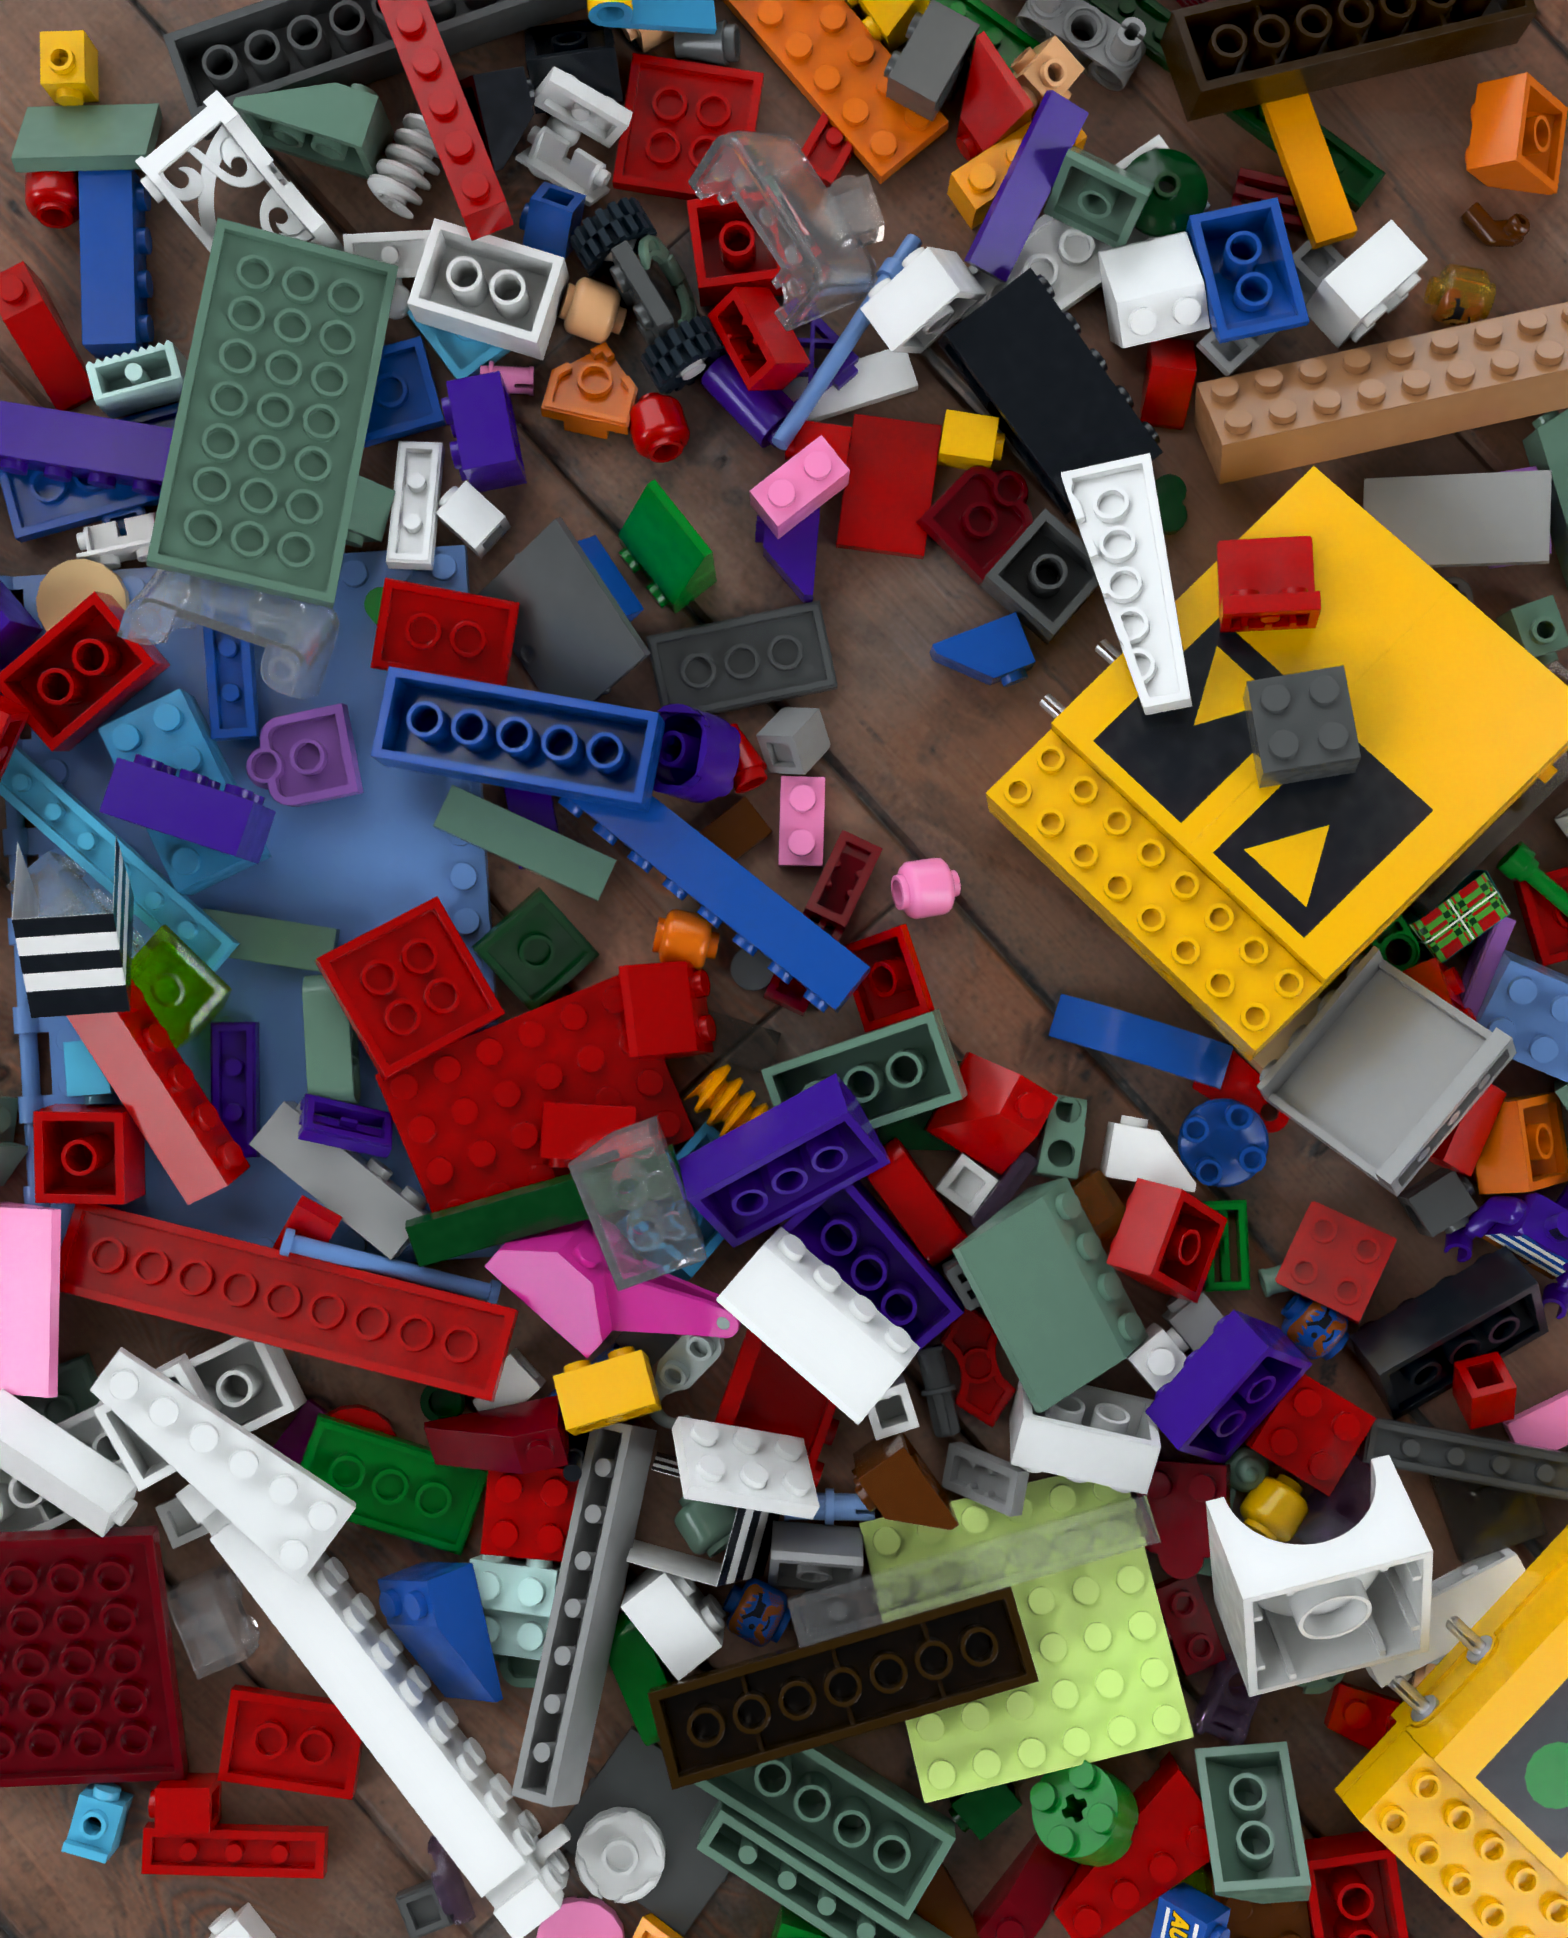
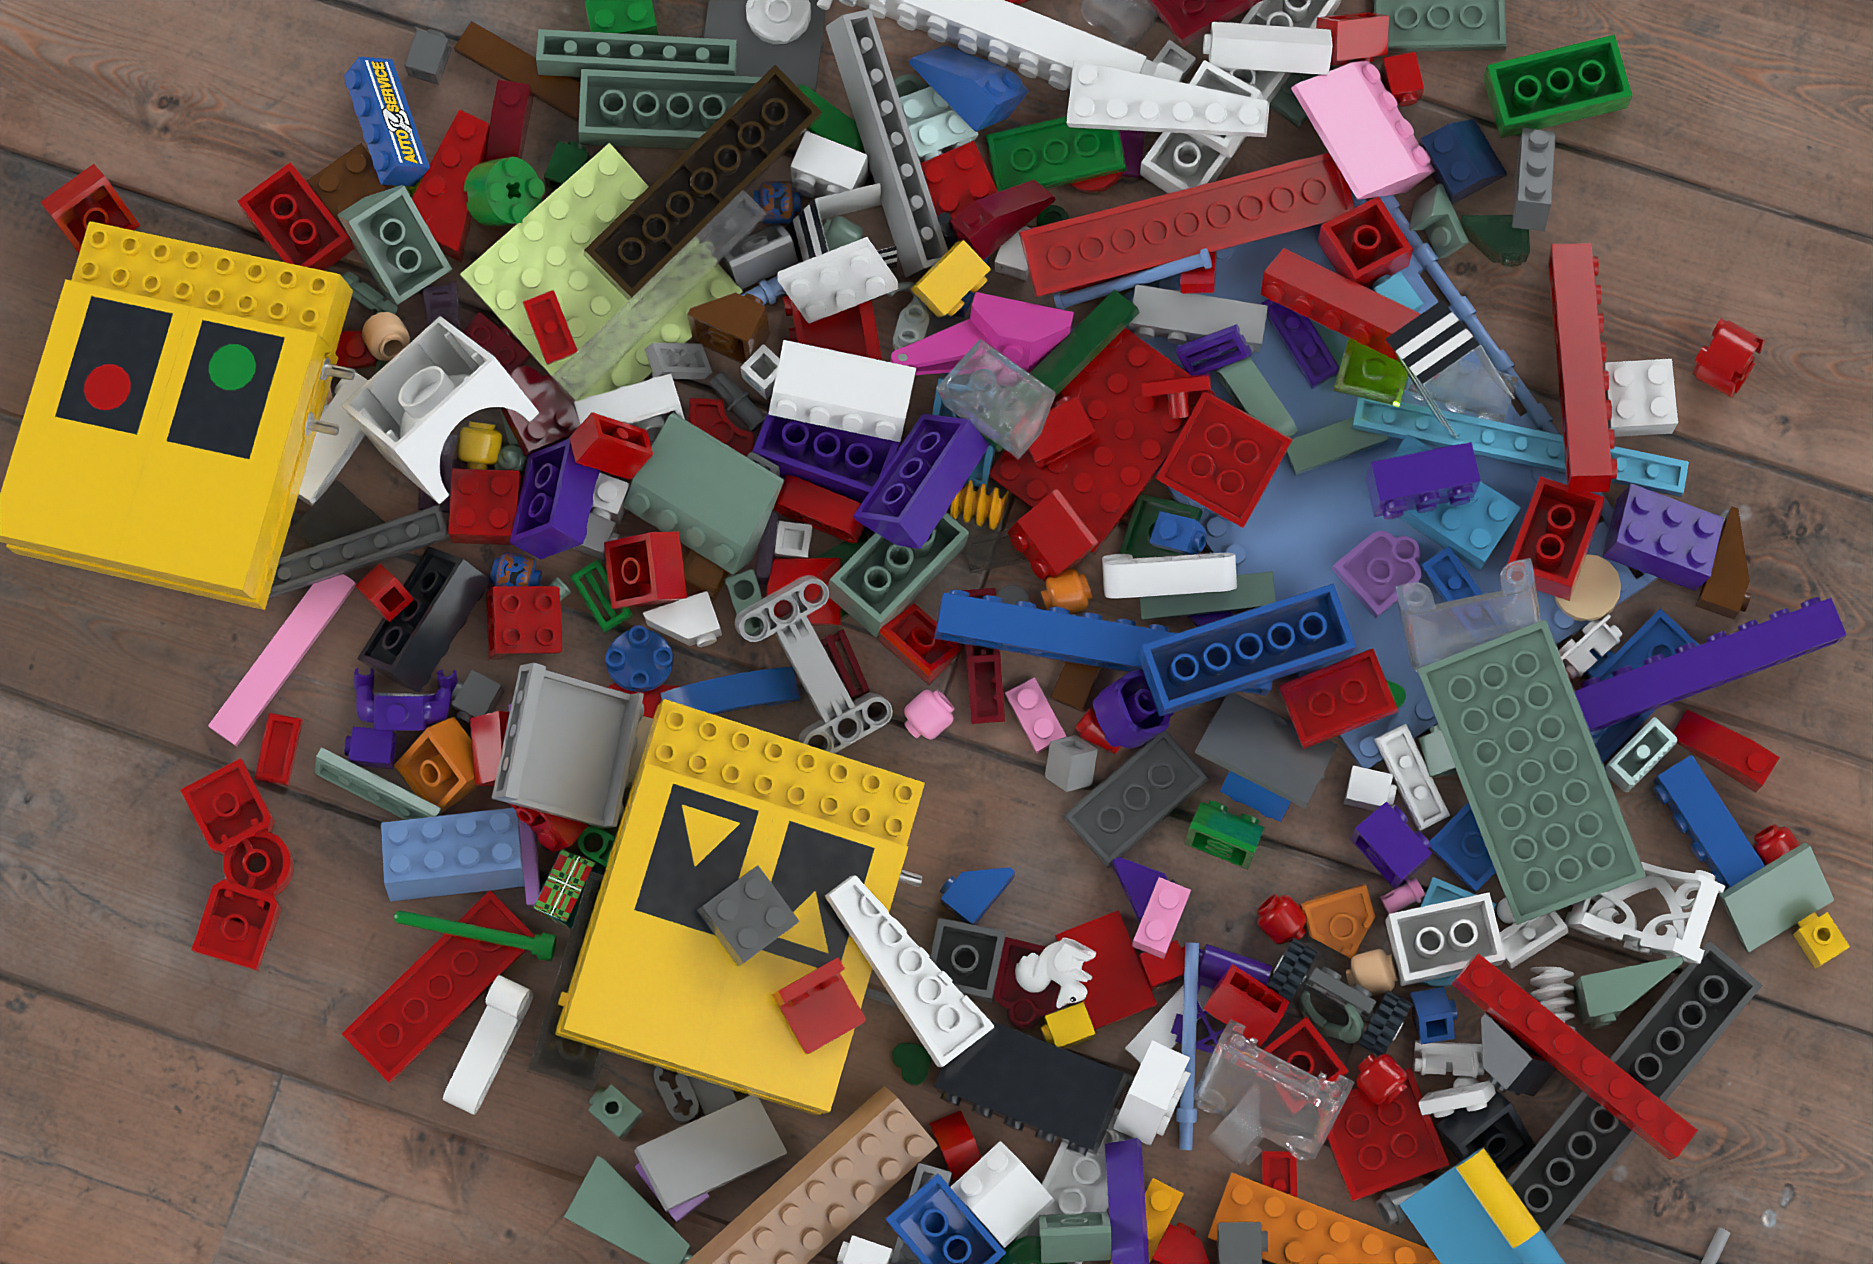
camera: 150 degrees right, 10 degrees down
(417, 1098) = (1177, 391): none -> red tile
(517, 931) = (1178, 534): none -> blue bracket
(560, 886) = (1168, 574): none -> white beam
(654, 174) = (1381, 1078): none -> red head
(941, 504) = (1059, 963): none -> white animal
(1010, 1006) = (830, 640): none -> dark red tile
(1034, 1012) = (813, 665): none -> light grey beam
(1122, 1607) = (550, 327): none -> red plate
(1135, 1412) = (611, 446): none -> red brick
(1308, 1773) = (368, 296): none -> sand green axle
(1318, 1710) = (385, 335): none -> light nougat head

